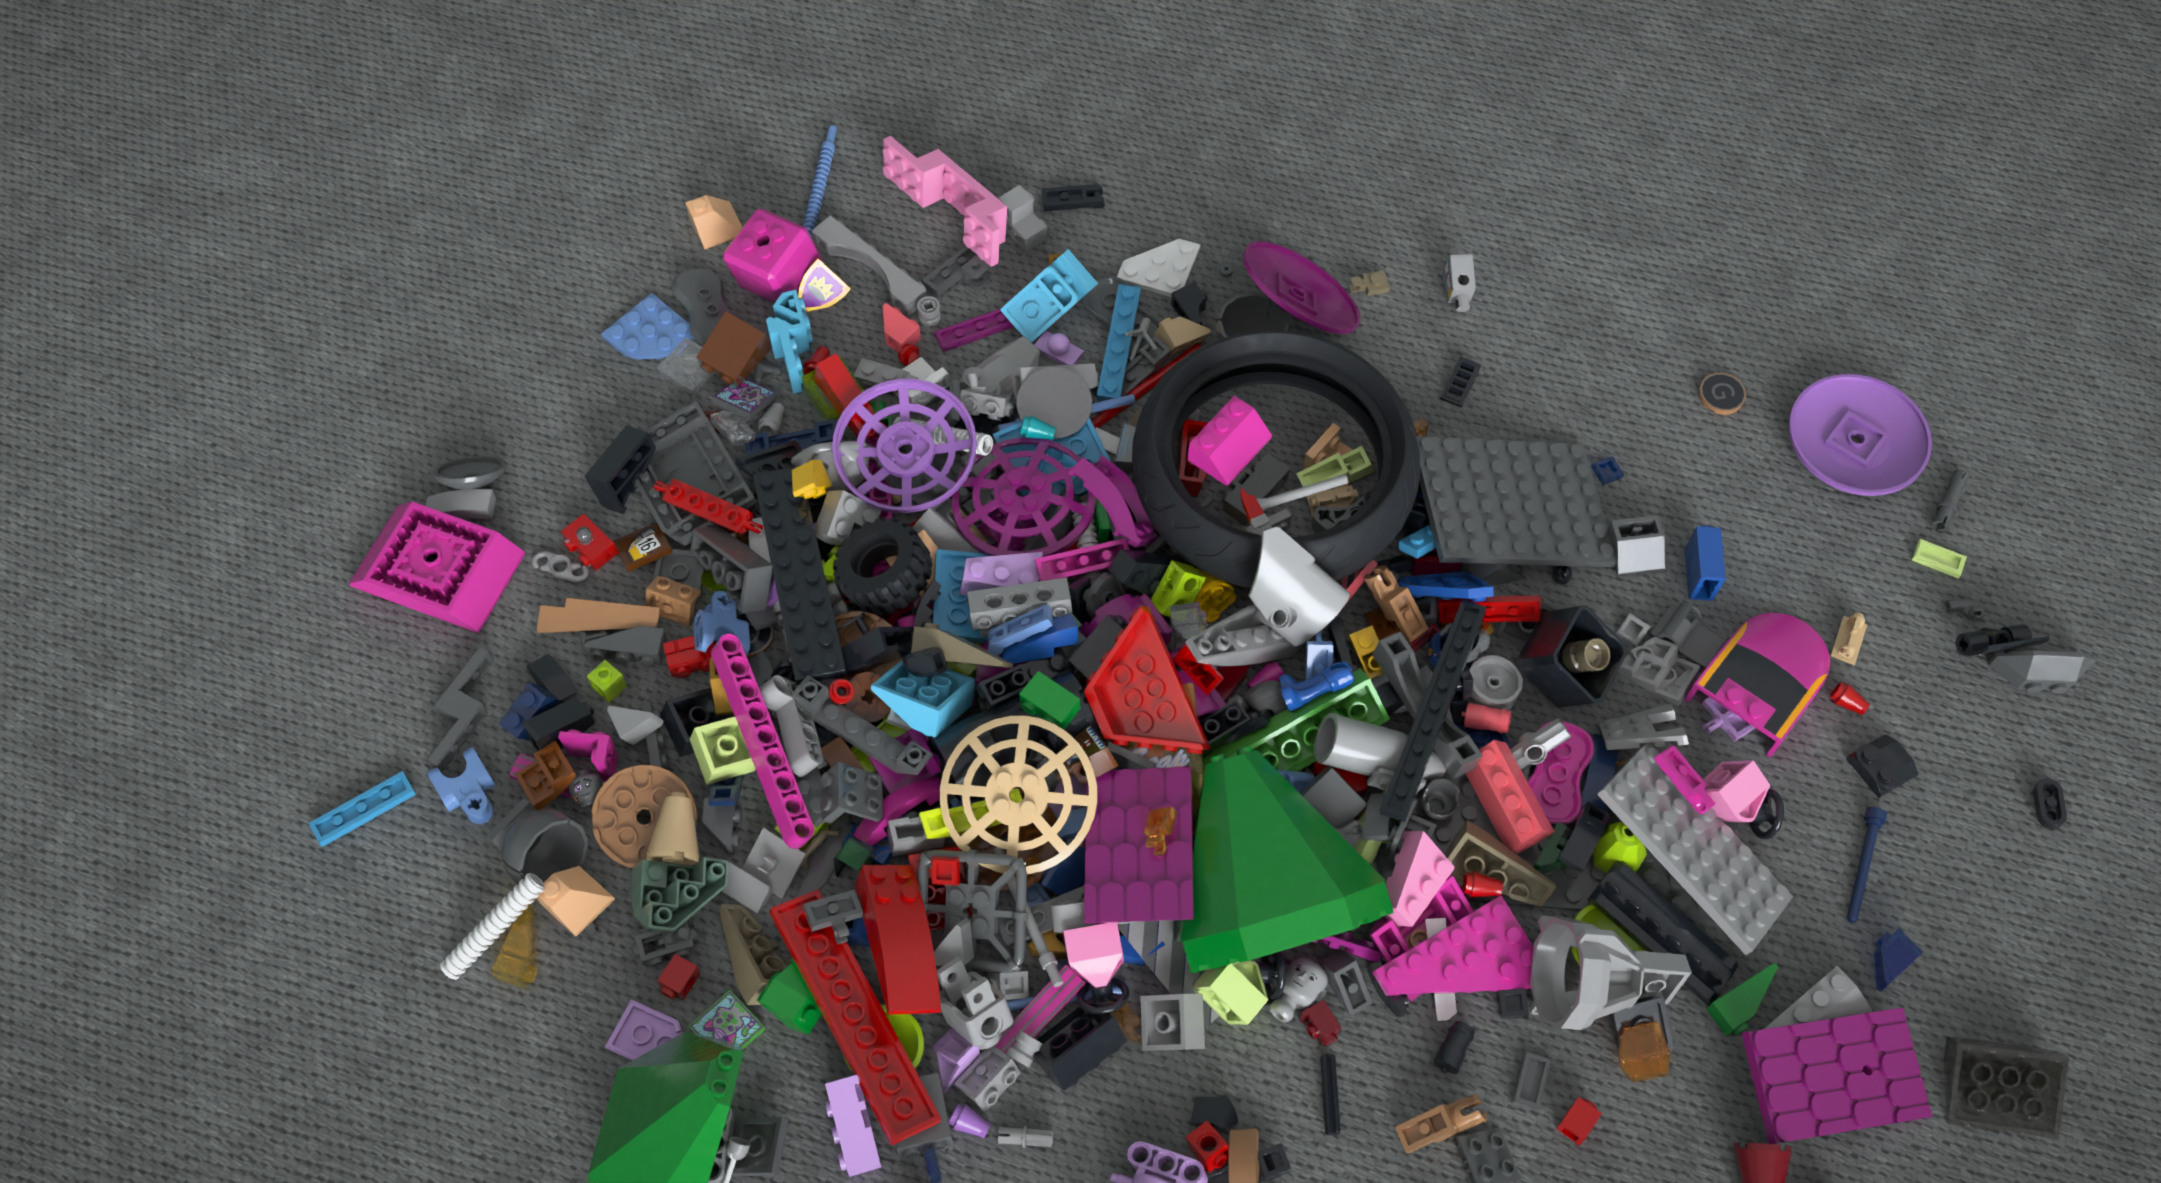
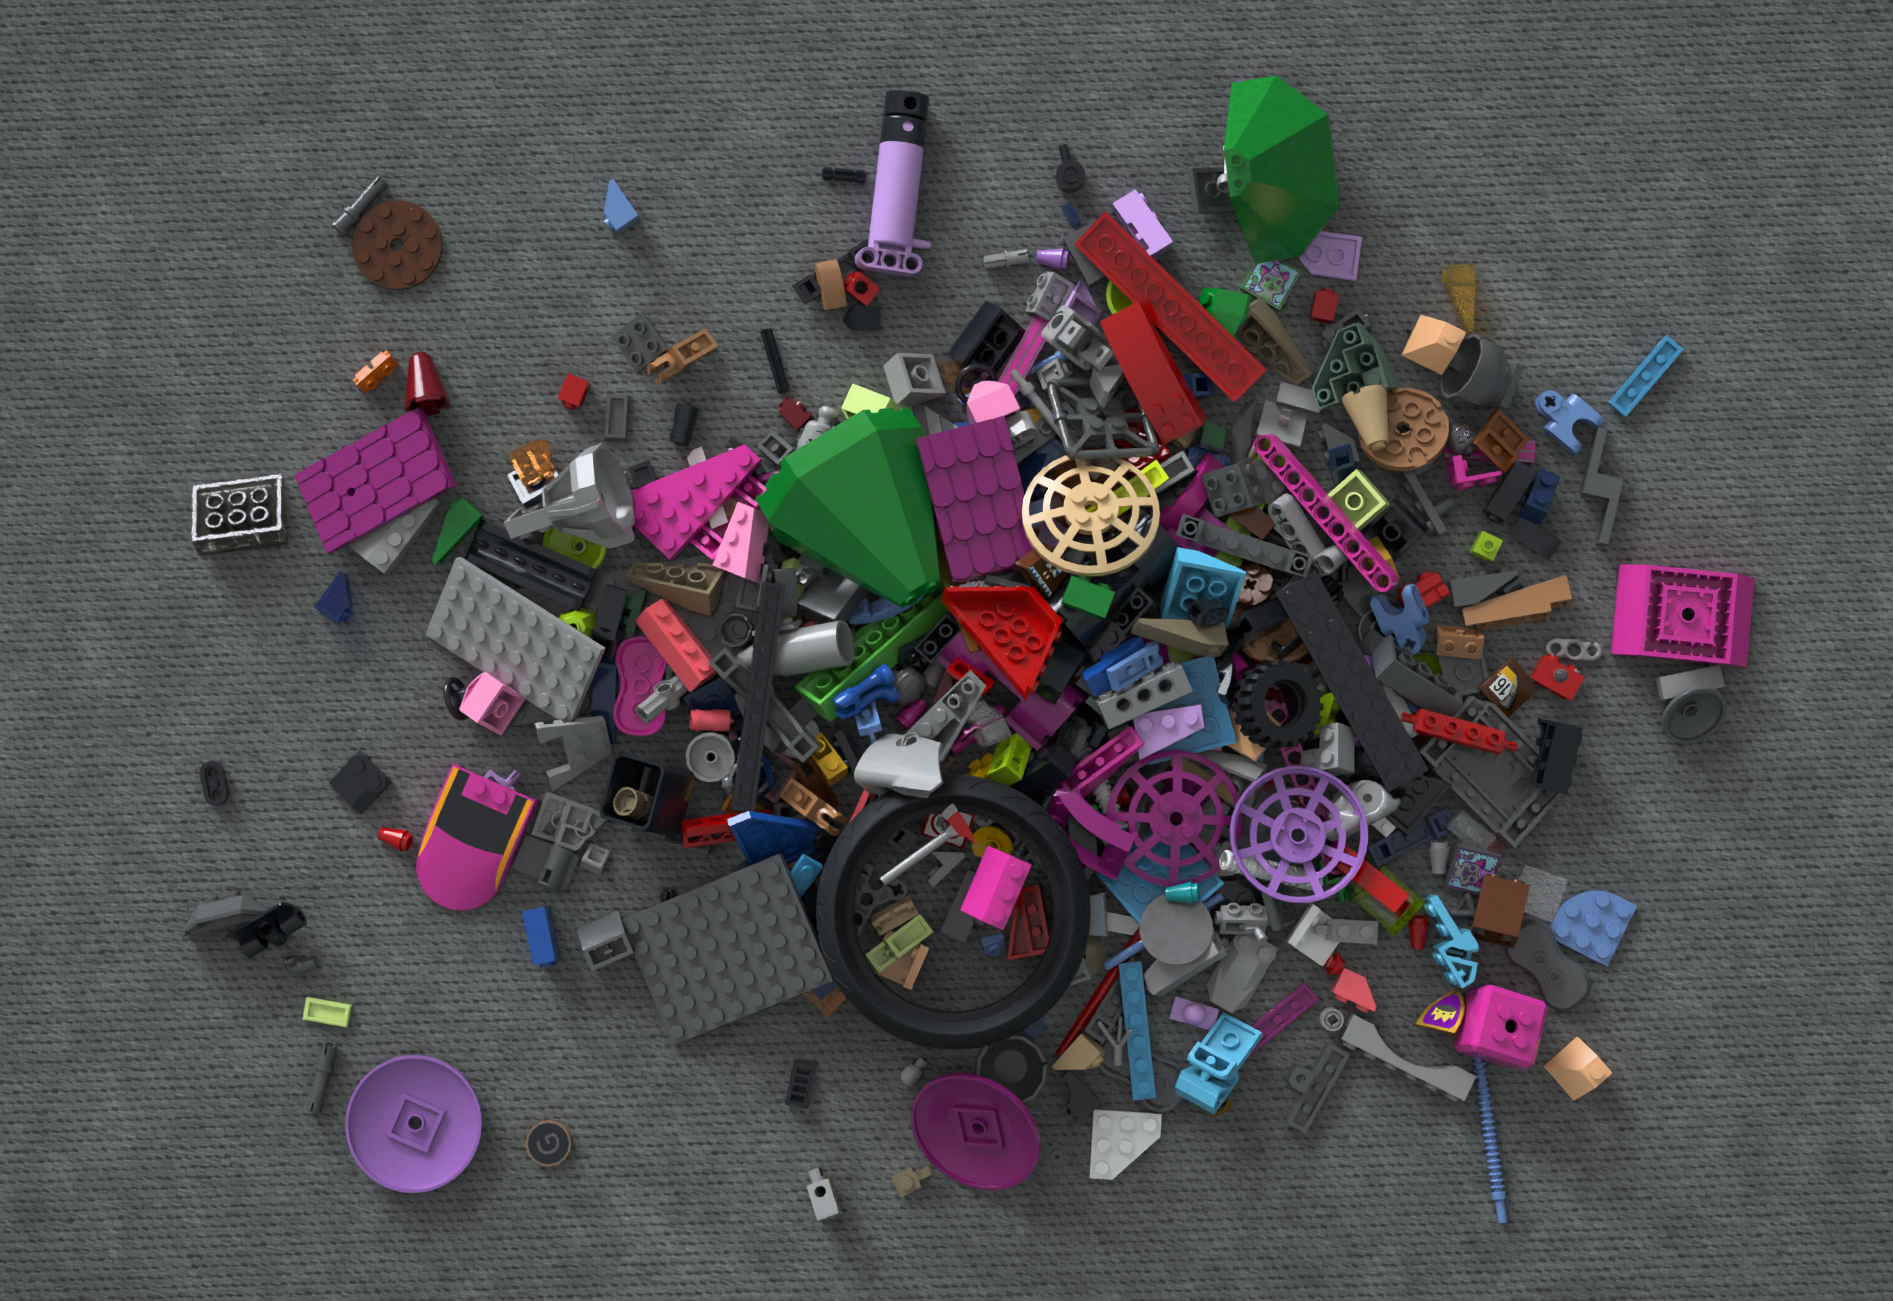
camera: 170 degrees right, 25 degrees up
(492, 926) = (1488, 298): white piece -> none
(633, 724) = (1446, 506): light grey slope -> none
(810, 480) = (1372, 773): yellow slope -> none
(834, 912) = (1213, 381): dark grey plate -> none
(842, 684) = (1266, 575): red plate -> none
(938, 178) = (1378, 1170): bright pink bracket -> none
(945, 870) = (1132, 438): red tile -> none
(1021, 220) = (1277, 1154): light grey brick -> none
(1024, 1049) = (1026, 322): light grey wheel -> none
(1072, 197) = (1232, 1200): black plate -> none
(1158, 825) = (964, 512): clear orange plate -> none
(1481, 885) = (689, 561): red cone -> none
(1607, 470) = (644, 1023): clear blue tile -> none
(1685, 779) = (533, 694): dark pink hinge -> none
(1849, 638) = (401, 901): tan hinge -> none
(1874, 819) = (363, 725): dark blue piece -> none

